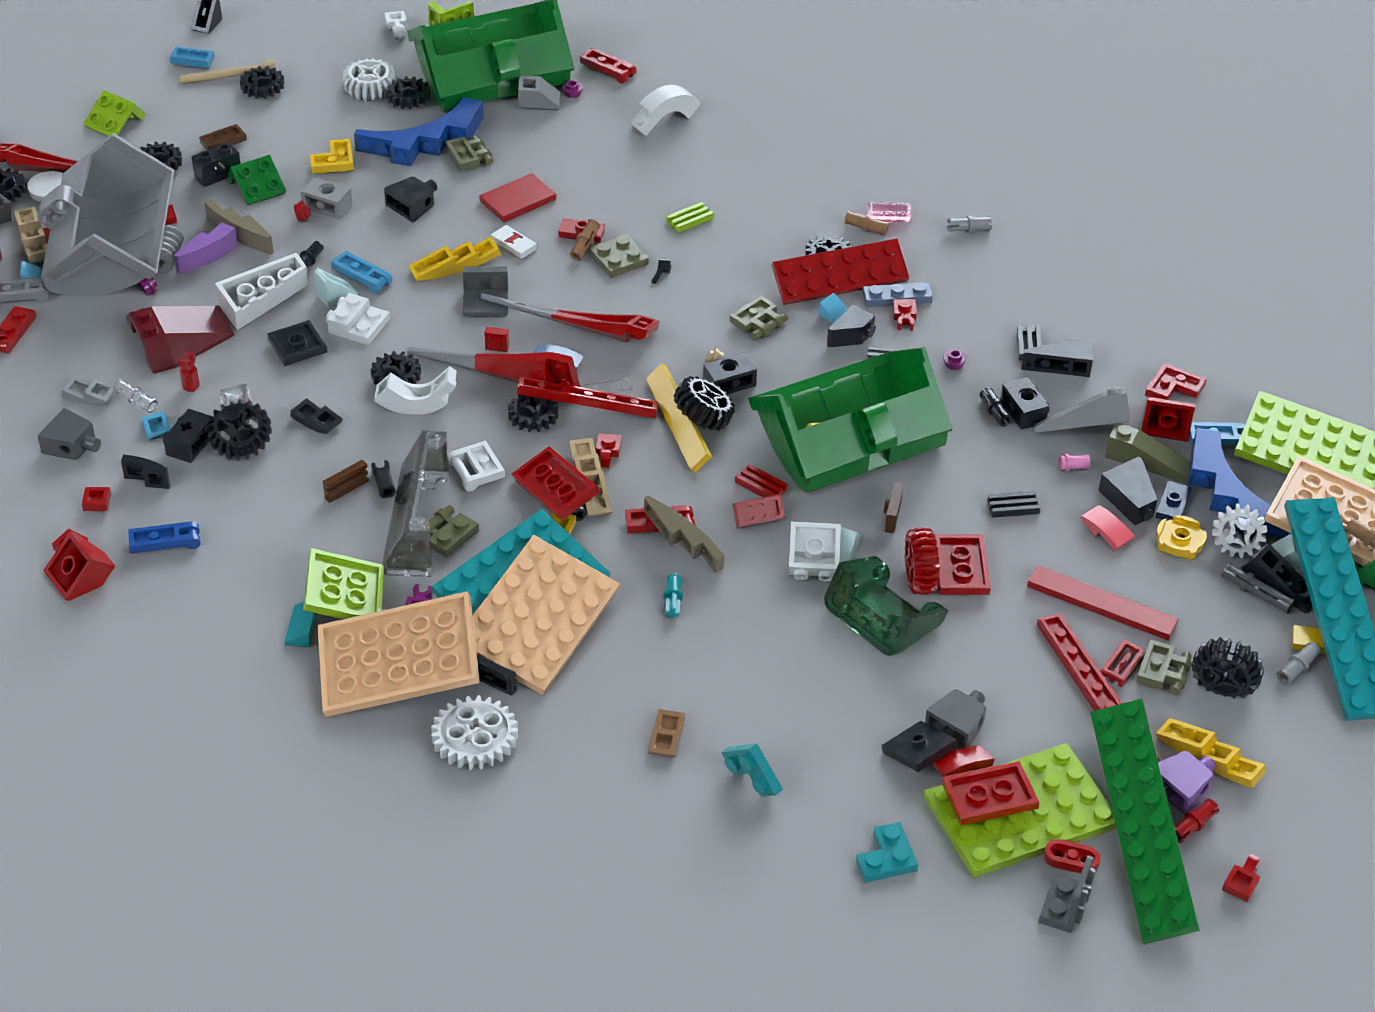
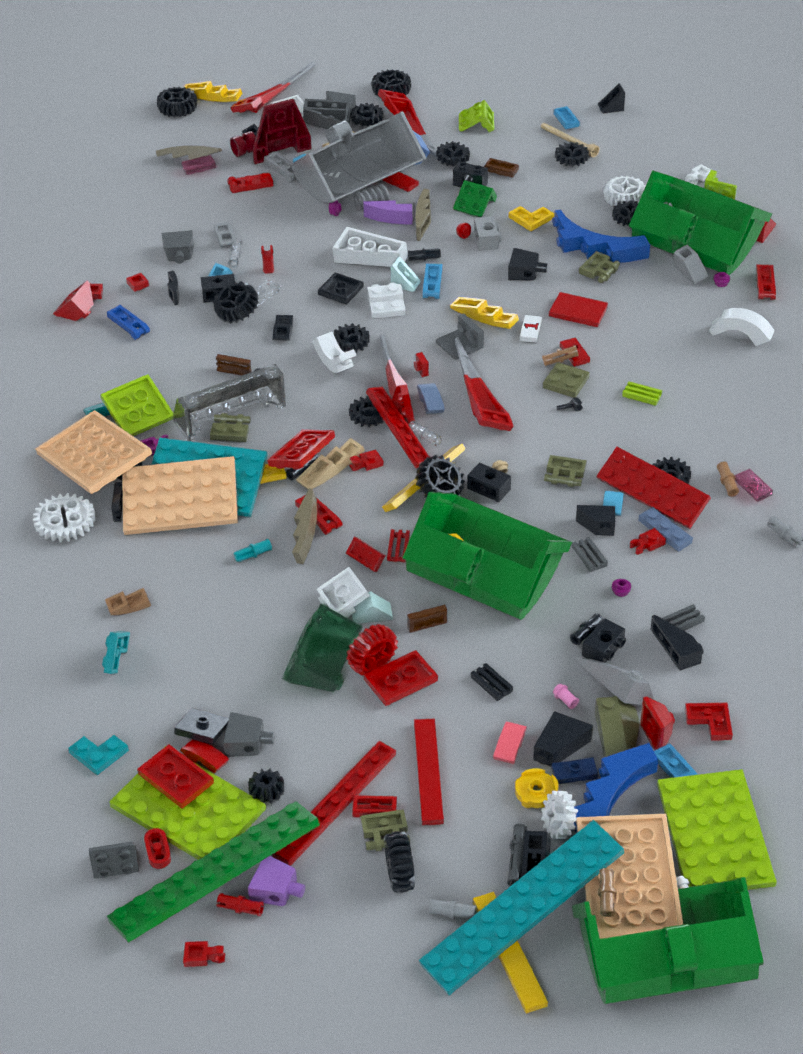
camera: 60 degrees right, 0 degrees up
(176, 329) = (302, 239): dark red wedge -> none
(482, 461) = (301, 414): white plate -> none
(1044, 730) = (266, 786): none -> black gear
(1203, 743) = (316, 890): yellow slope -> none

